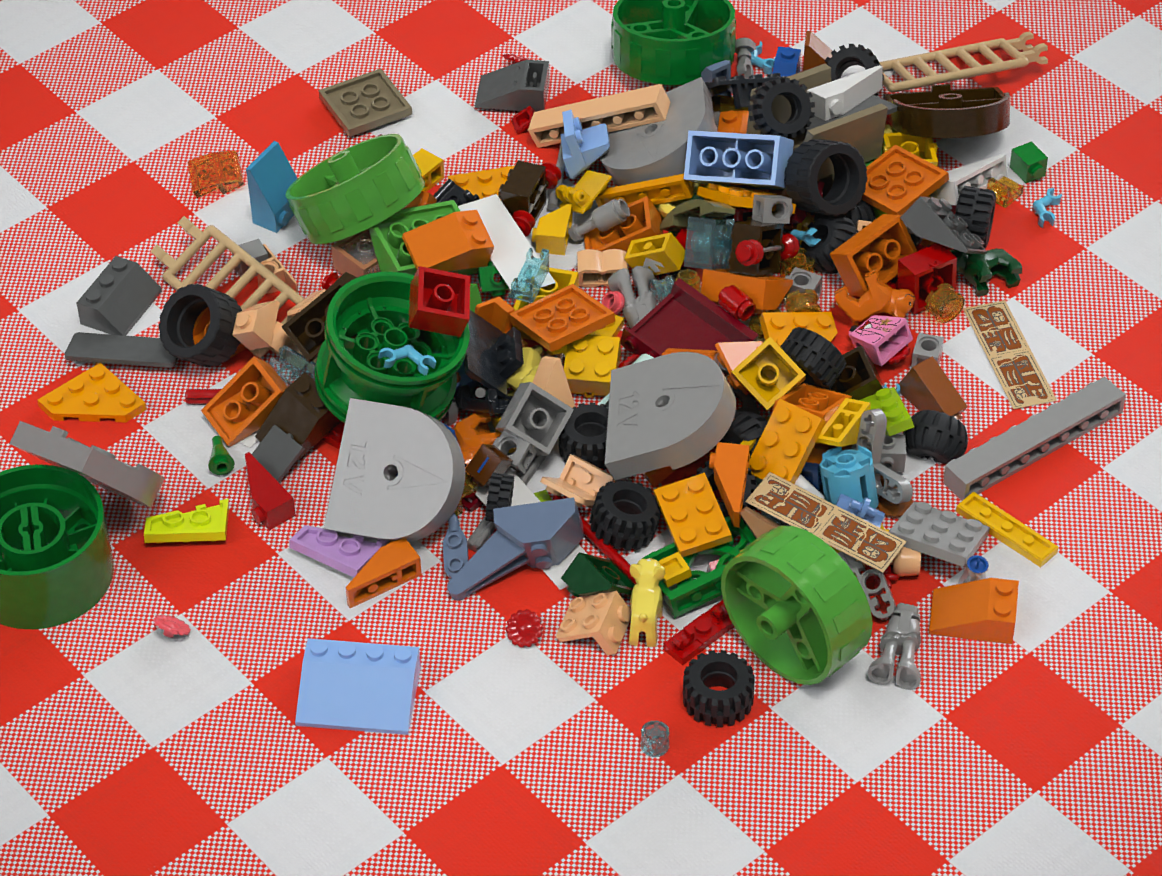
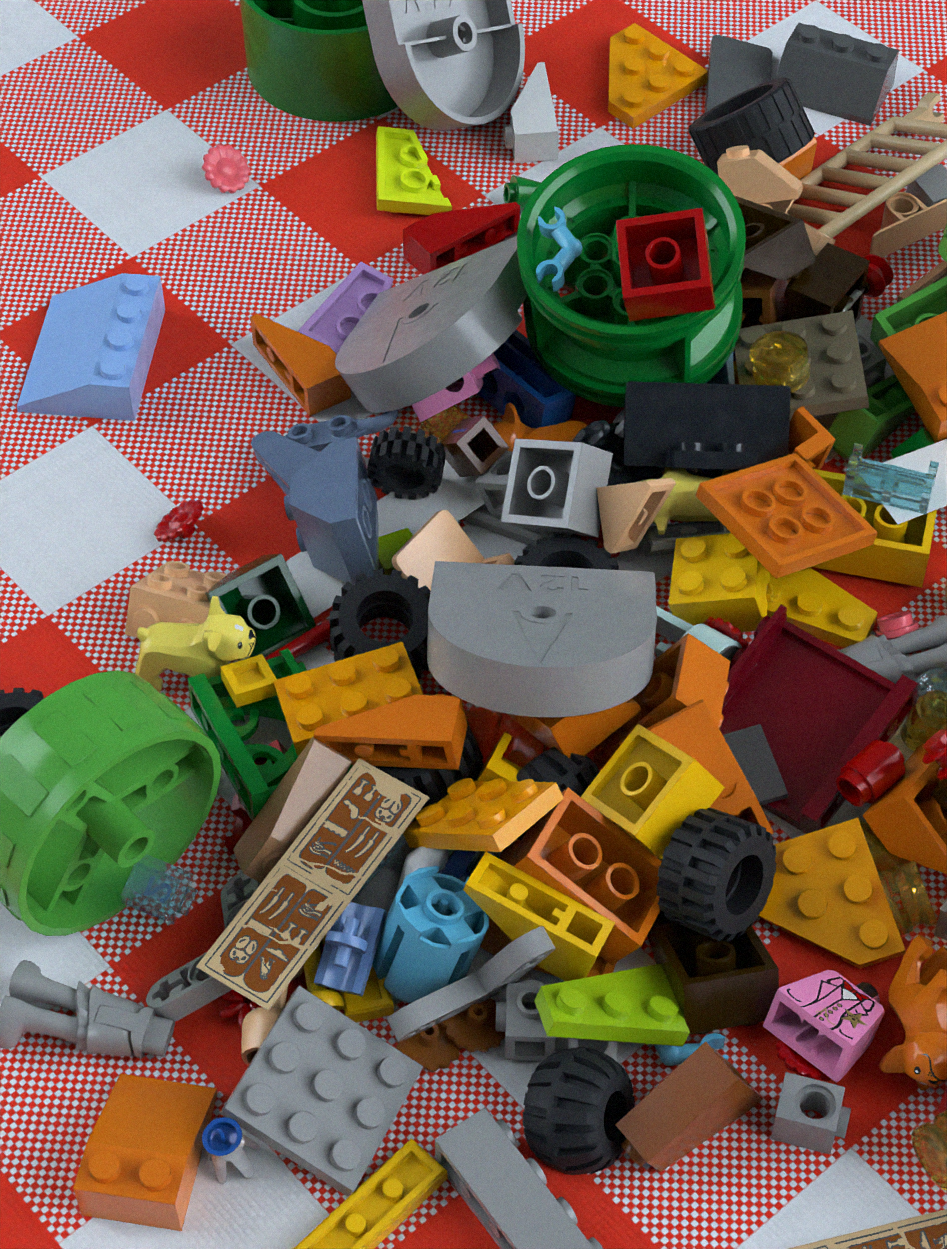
camera: 90 degrees right, 5 degrees up
(151, 450) = (533, 121): none -> white slope

